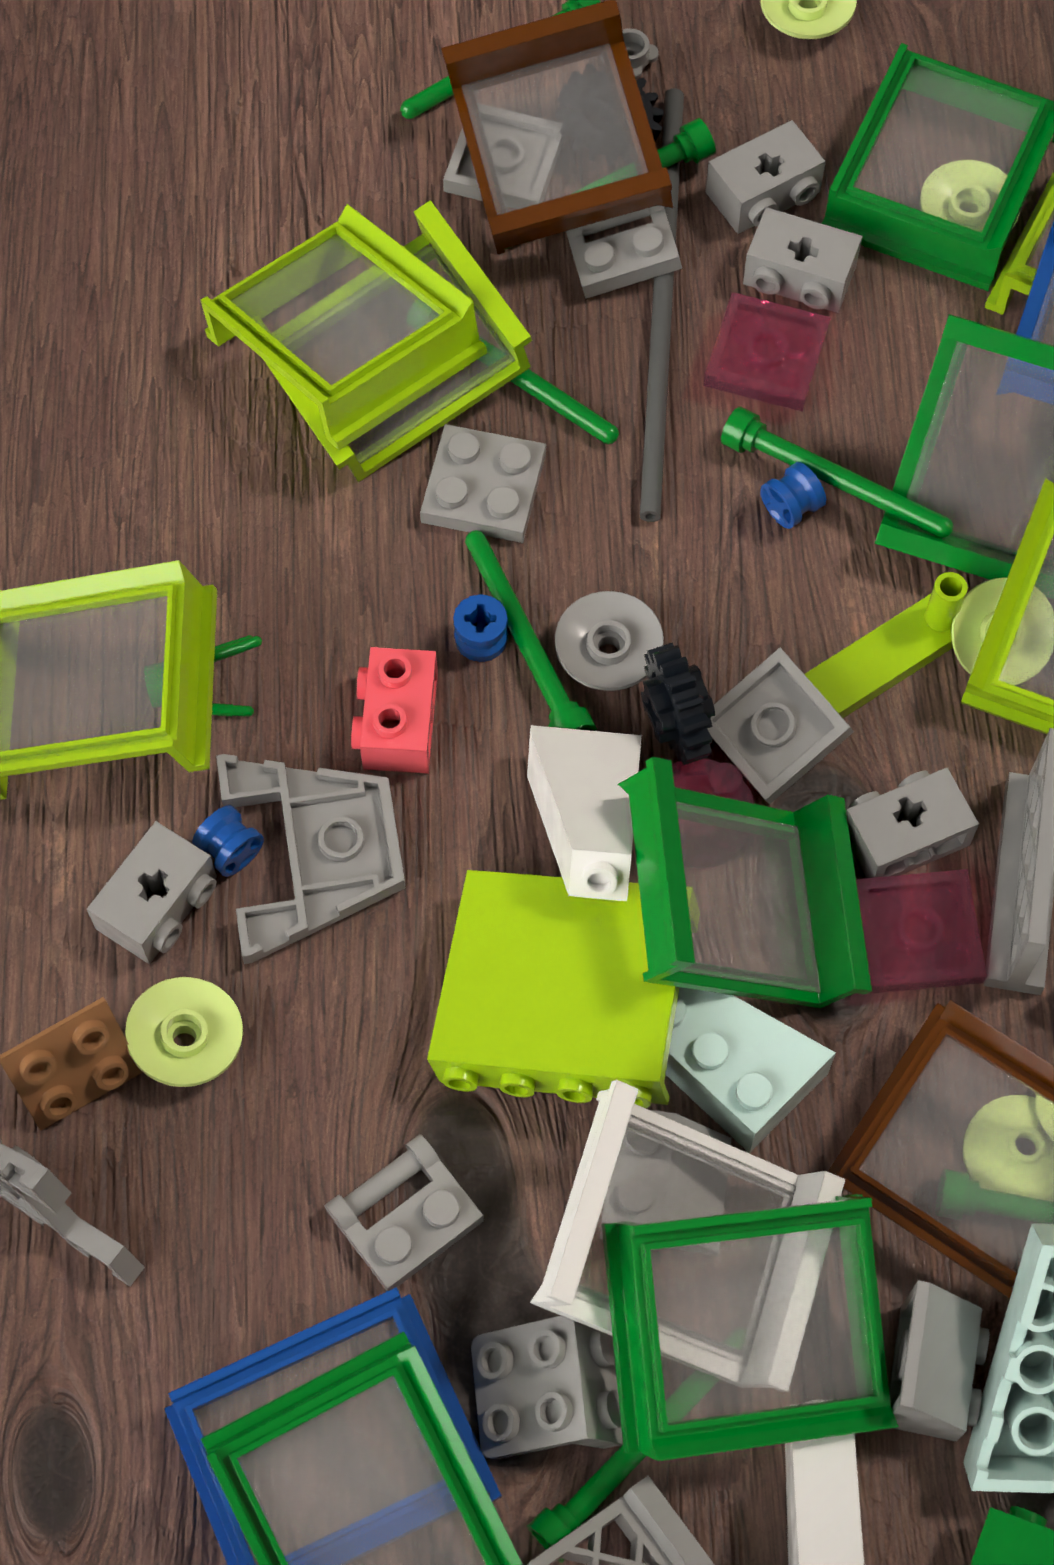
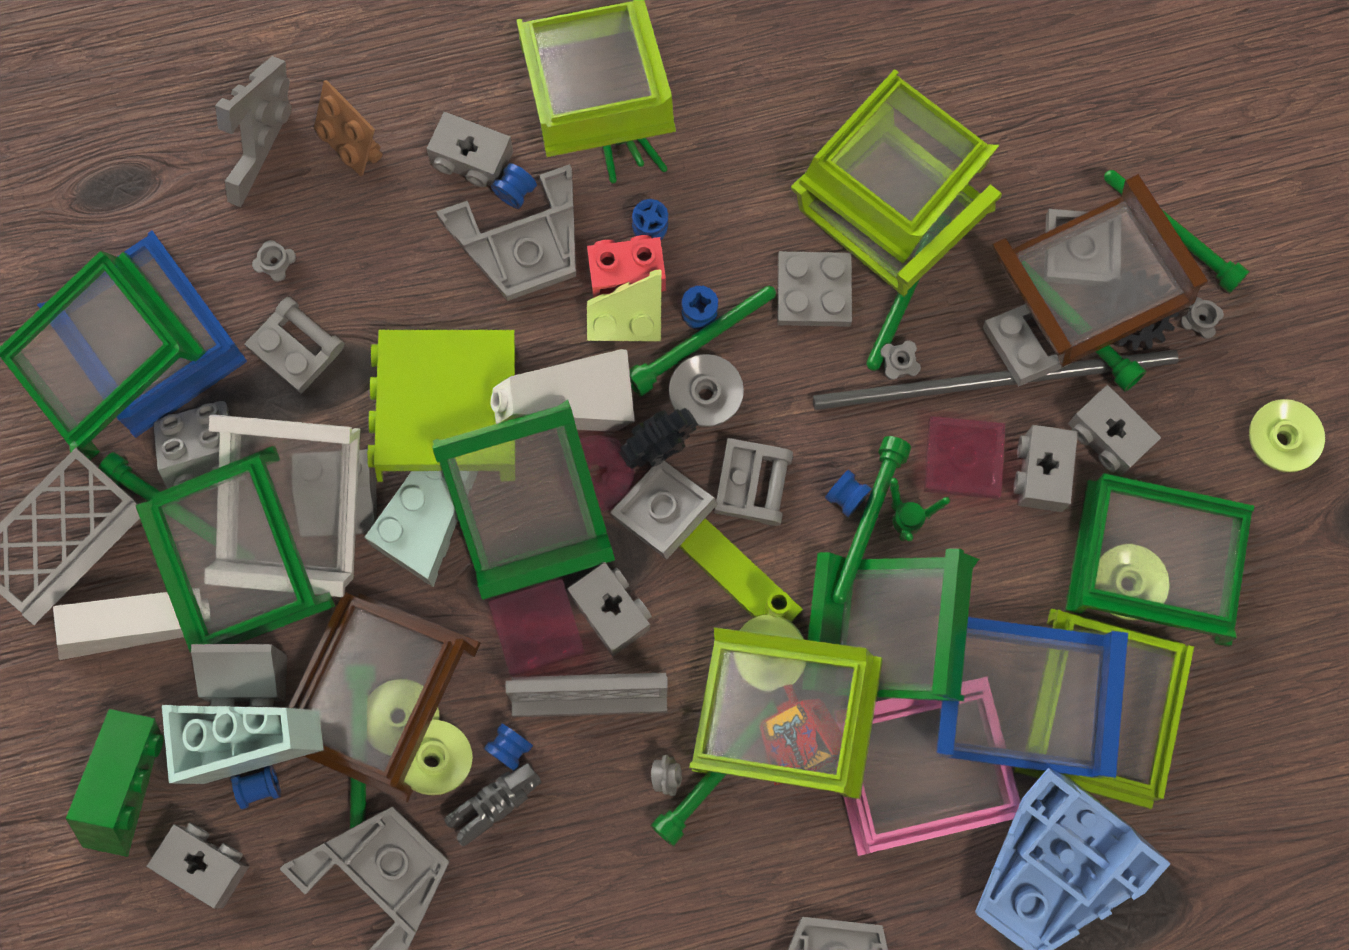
camera: 75 degrees right, 10 degrees up
(178, 1008) = (378, 173): yellowish green dish -> none
(254, 1205) = (269, 251): none -> light grey plate
(328, 654) = (647, 213): none -> blue wheel
(469, 717) = (628, 312): none -> yellowish green wing
(614, 409) = (892, 367): none -> light grey plate
(744, 623) = (741, 477): none -> light grey plate
(840, 429) = (910, 516): none -> green plant

